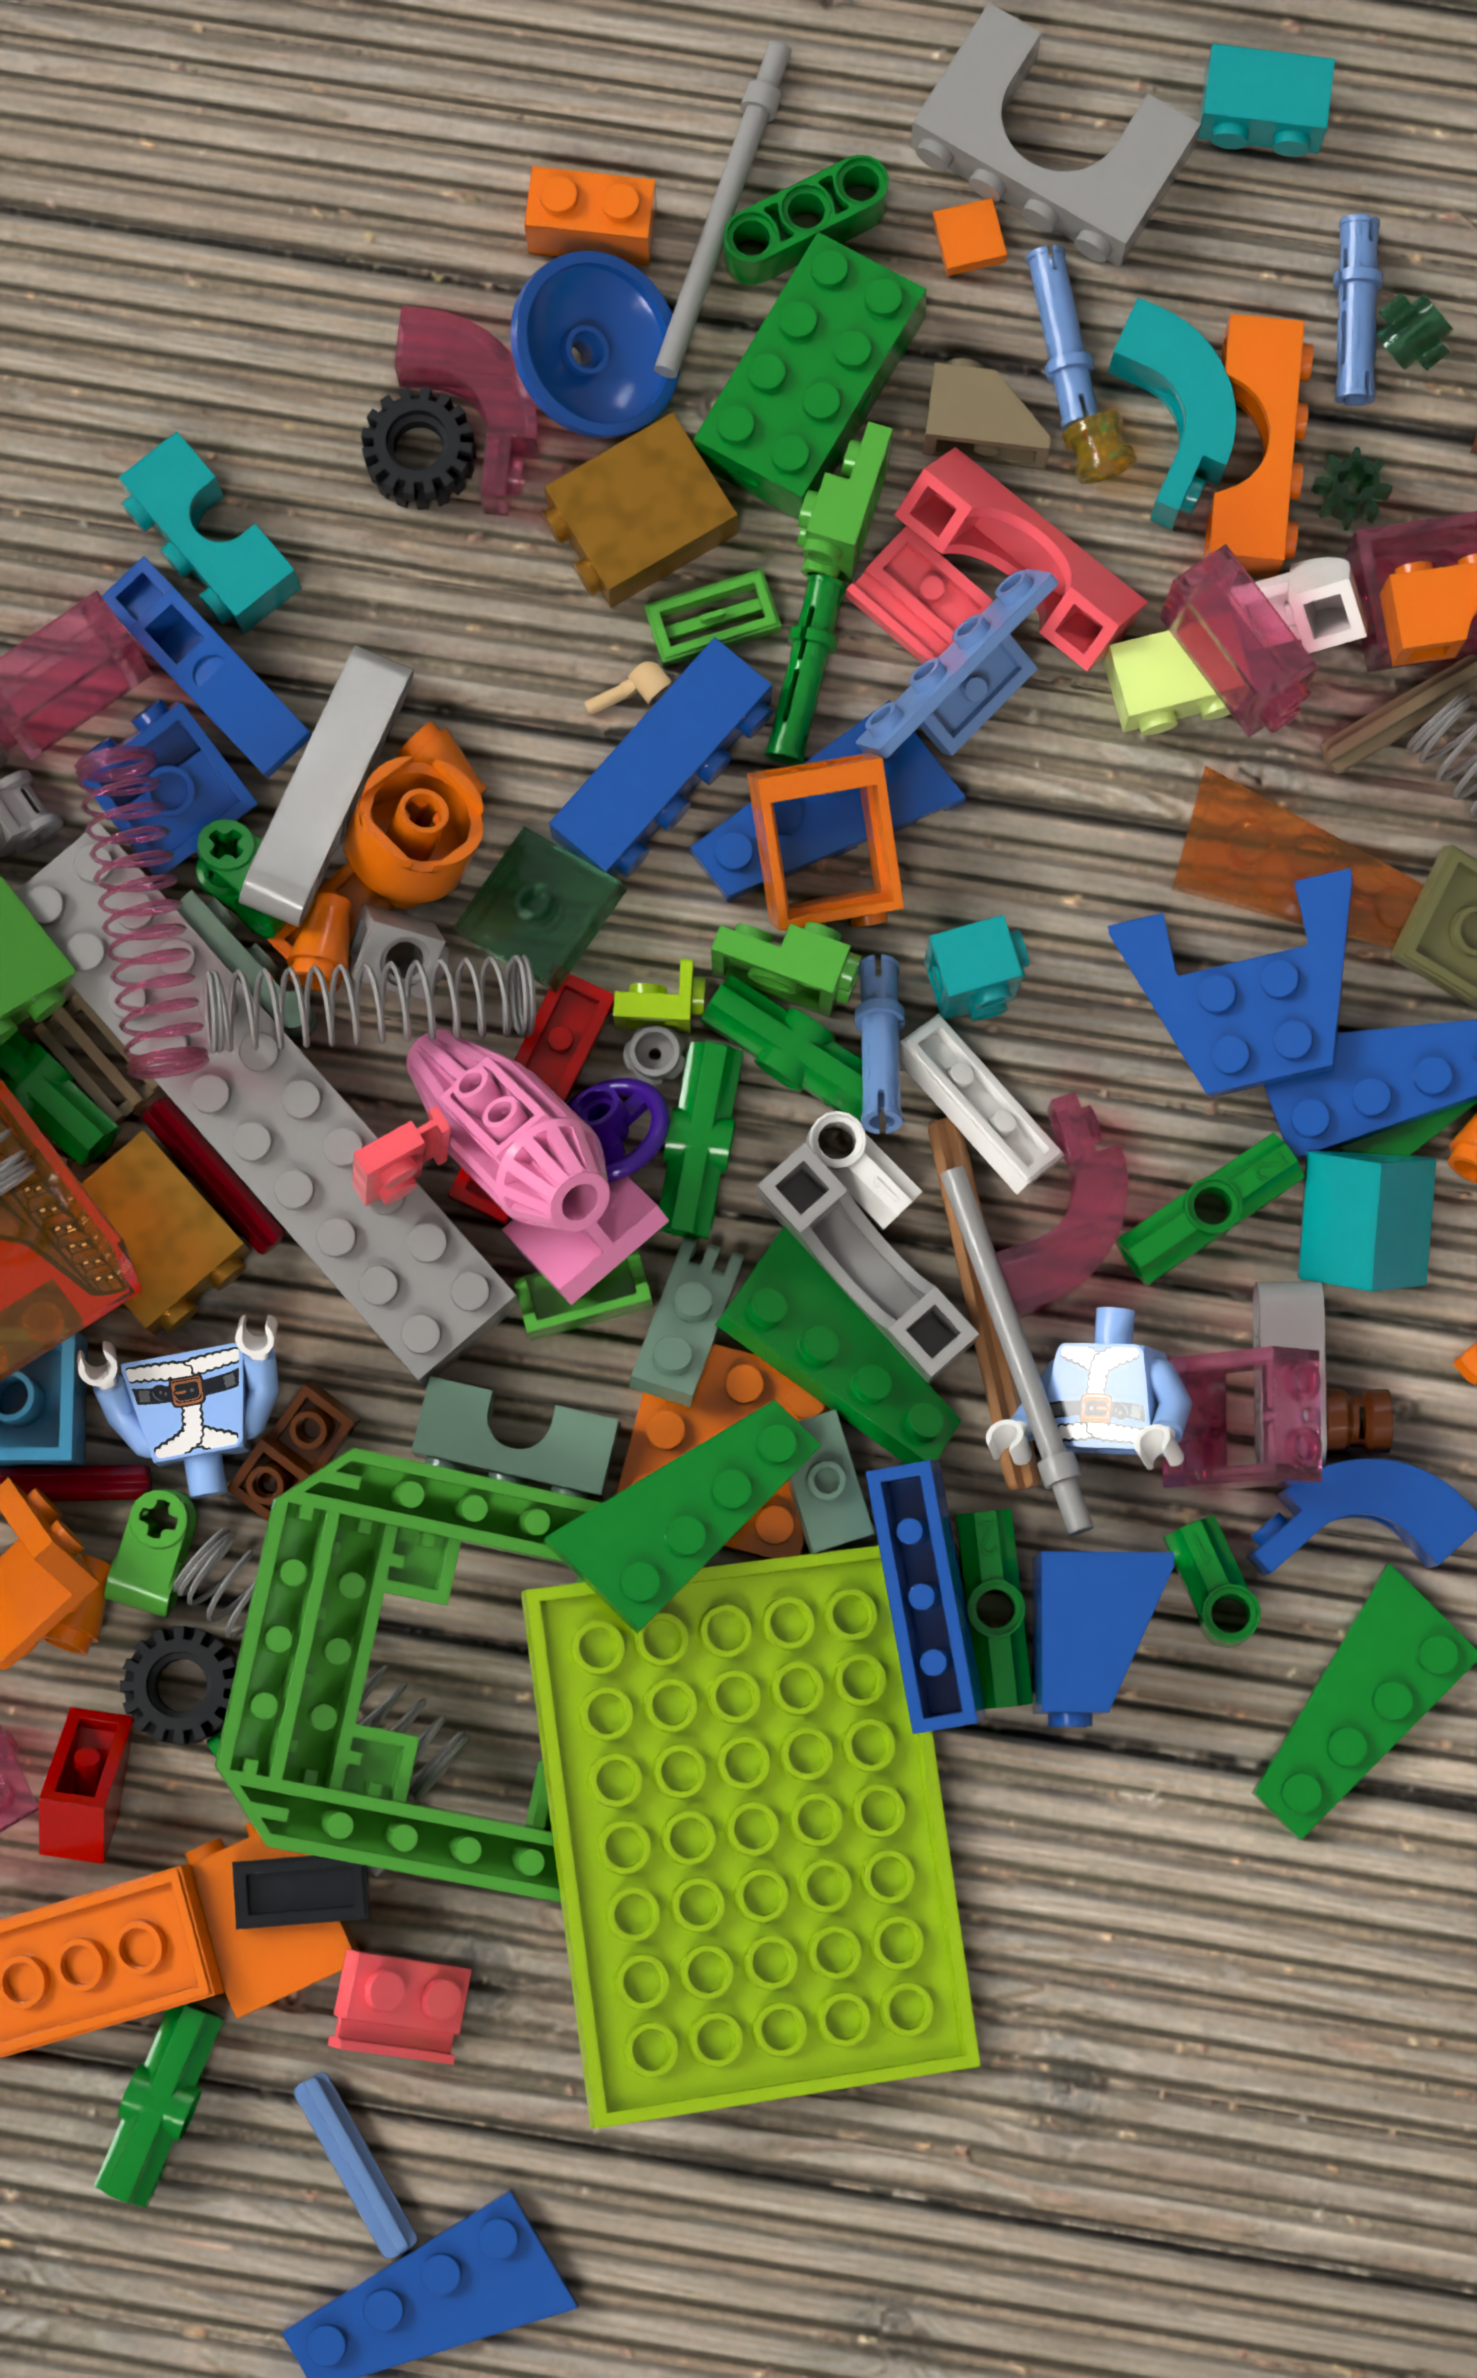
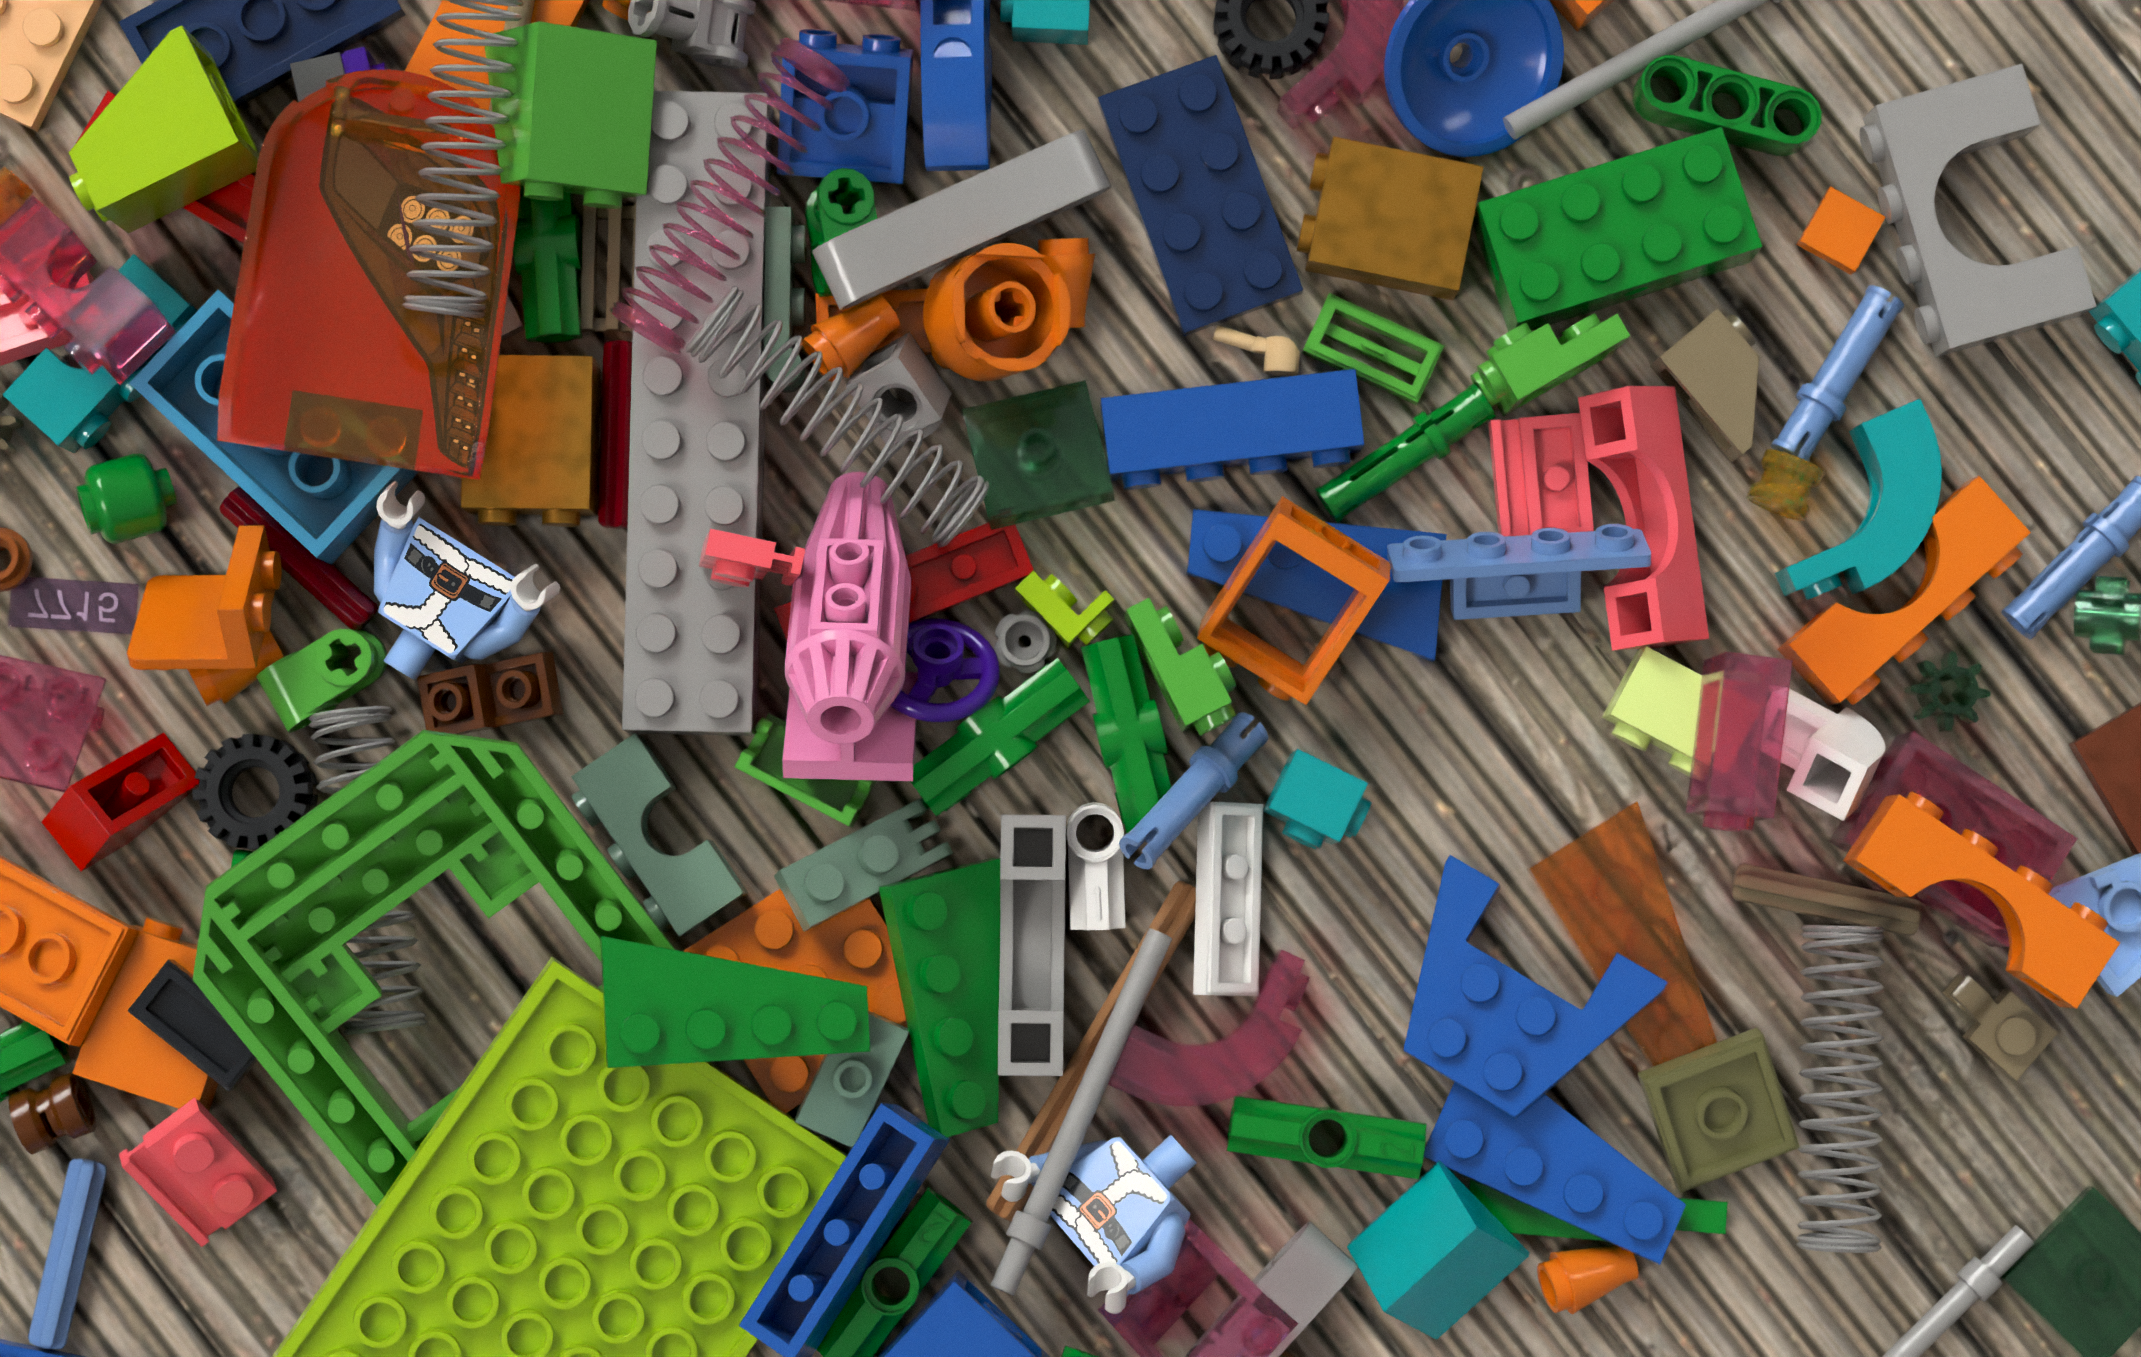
camera: 40 degrees right, 5 degrees up
(253, 2053) = (52, 1113): none -> reddish brown wheel
(484, 621) = (1200, 195): none -> dark blue plate

